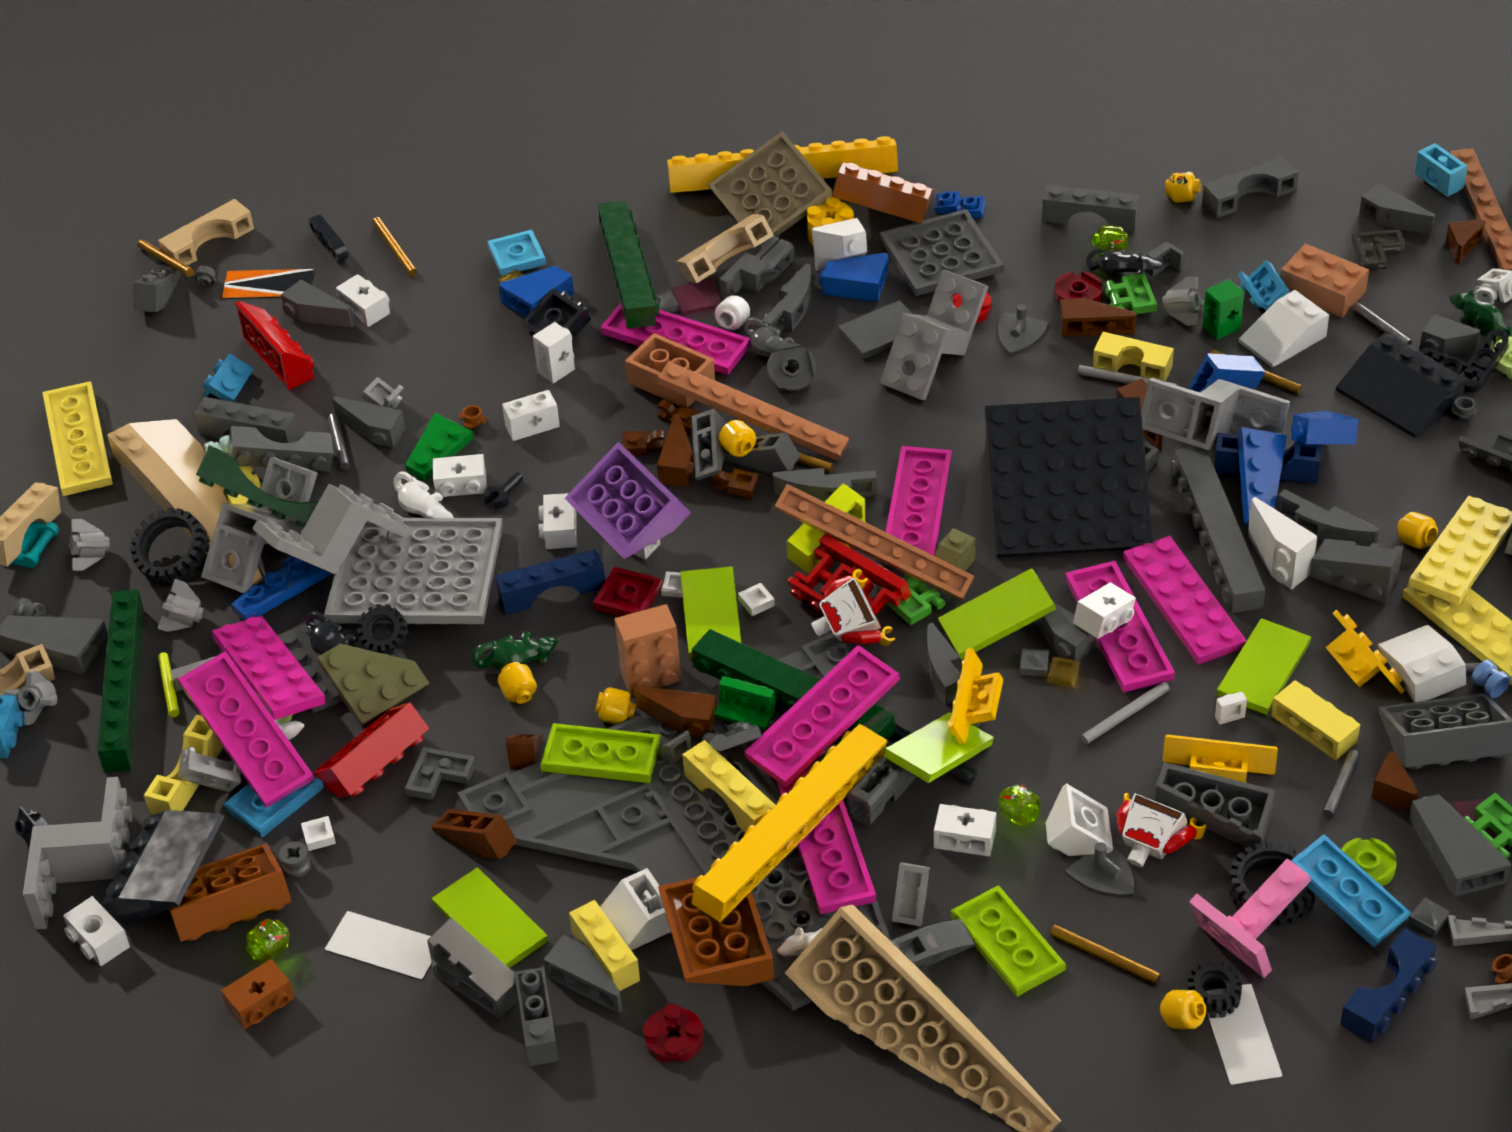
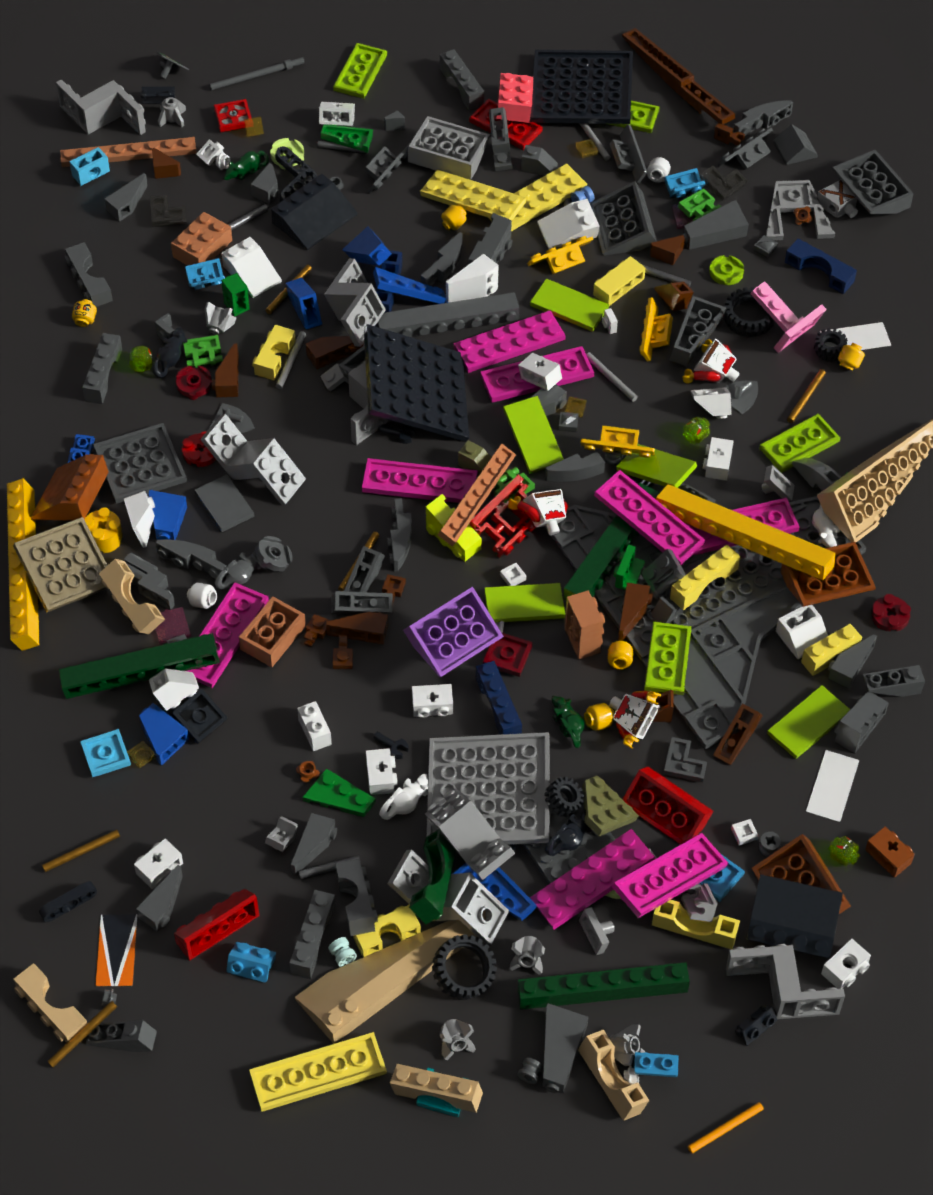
camera: 95 degrees left, 10 degrees up
(168, 685) = (600, 957): neon yellow bar -> none
(505, 714) = (634, 714): none -> torso
(554, 352) = (248, 709): white brick -> none
(588, 285) = (173, 686): none -> white slope
(737, 438) = (361, 579): yellow head -> none
(752, 410) = (325, 575): nougat plate -> none
(1292, 782) = (676, 295): none -> reddish brown slope
(1351, 891) = (754, 273): dark azure tile -> none

